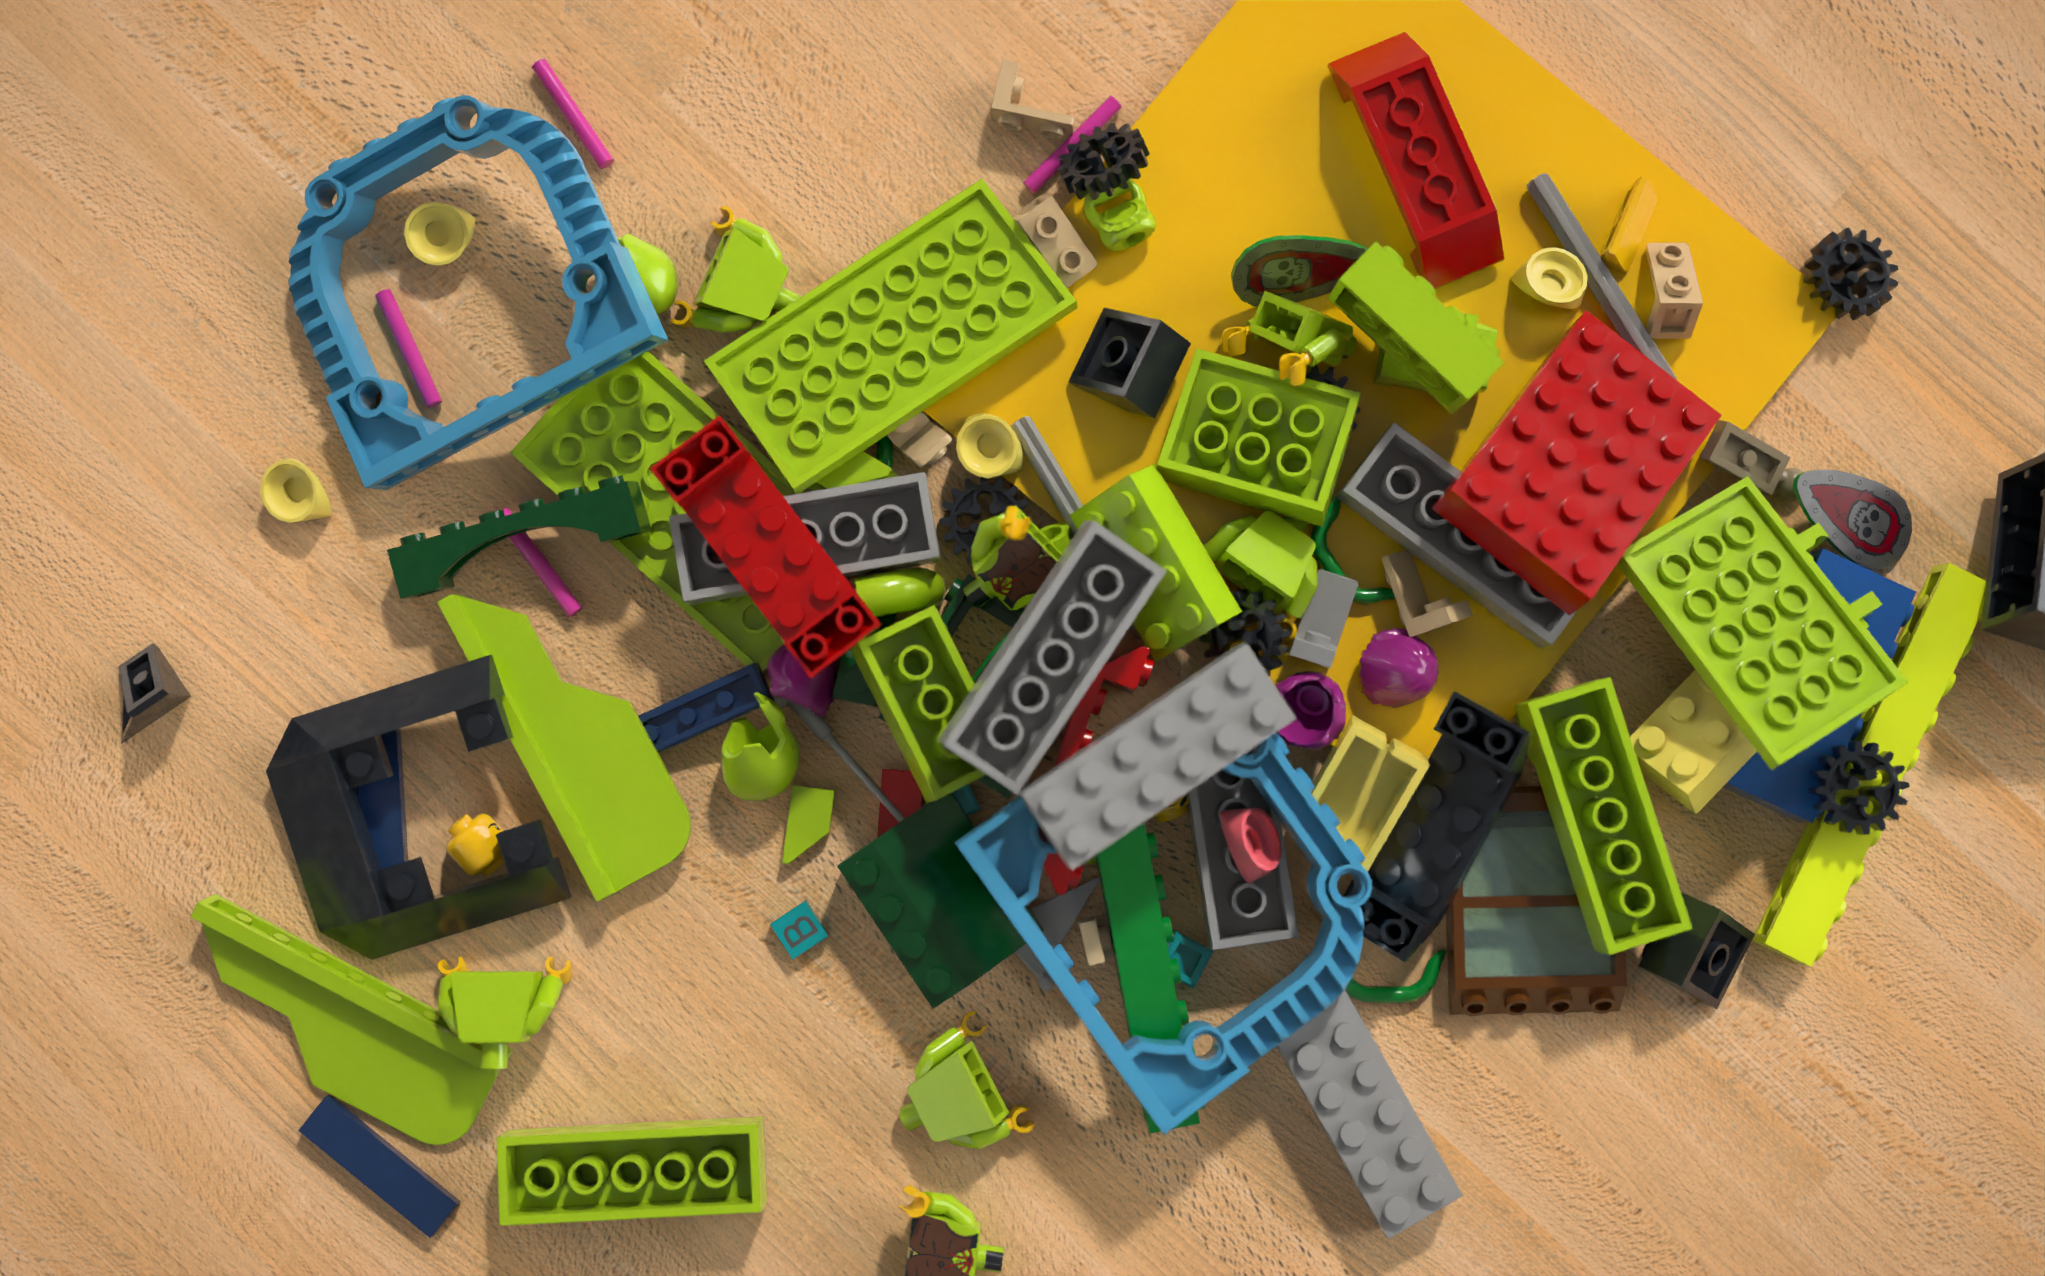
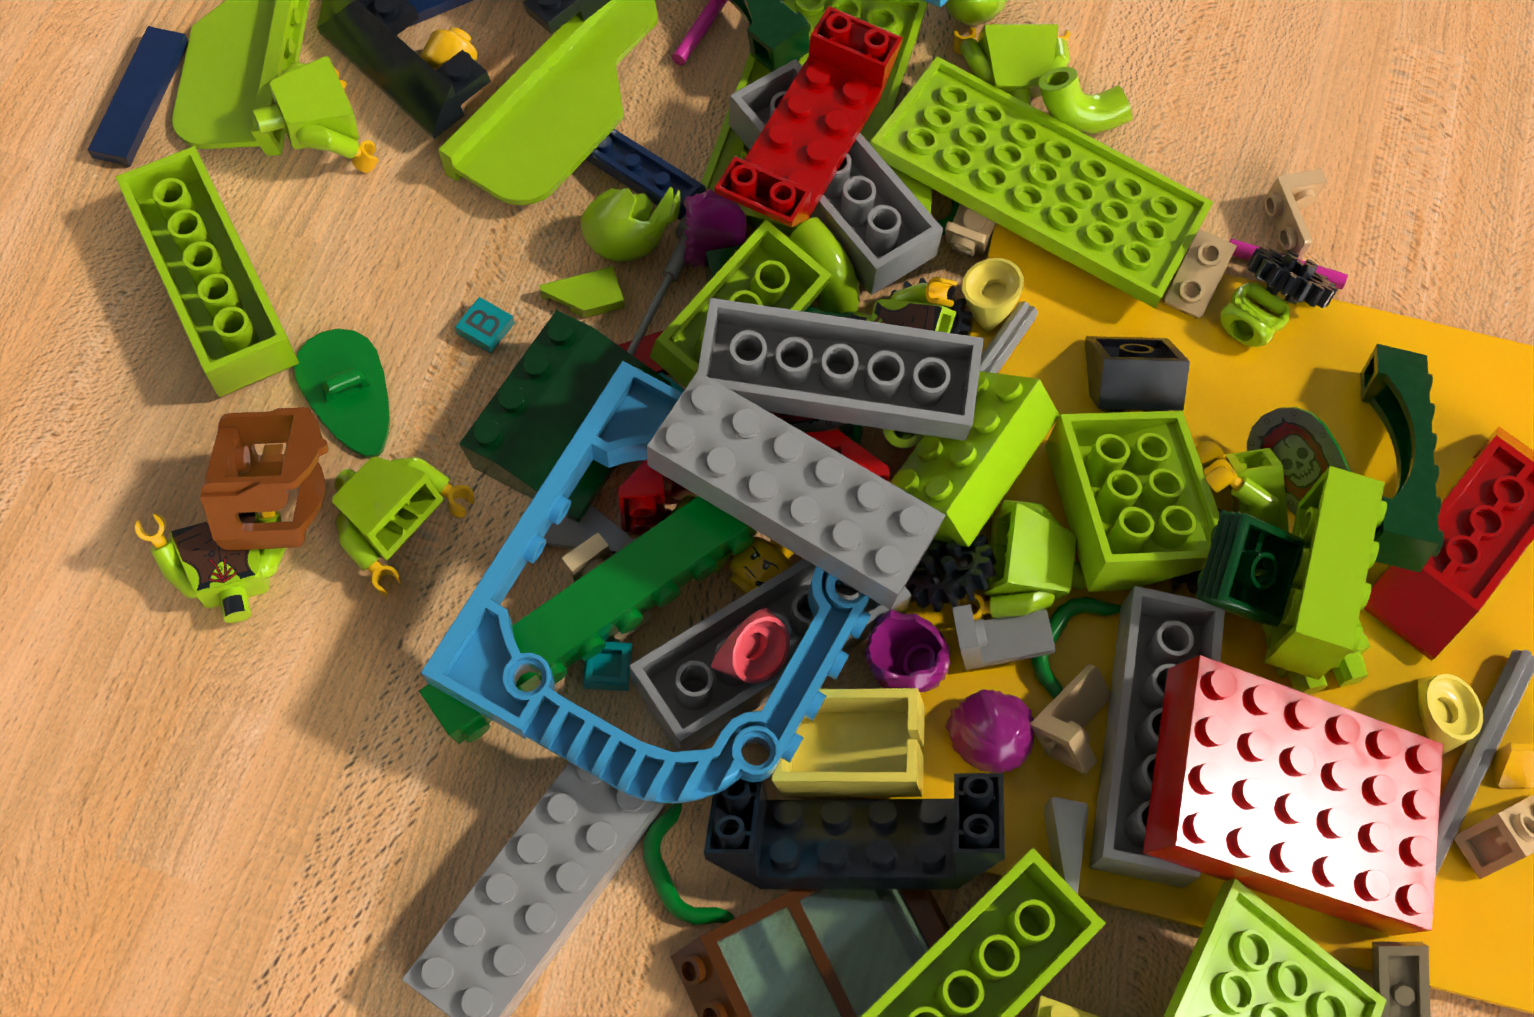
camera: 60 degrees right, 20 degrees down
(806, 1082) = (346, 389): none -> green shield
(825, 248) = (1079, 110): none -> lime cylinder
(858, 1180) = (250, 482): none -> dark orange animal
(1256, 135) = (1399, 391): none -> dark green arch
(1384, 392) = (1249, 568): none -> dark green brick
(1508, 653) = (1066, 834): none -> light grey slope

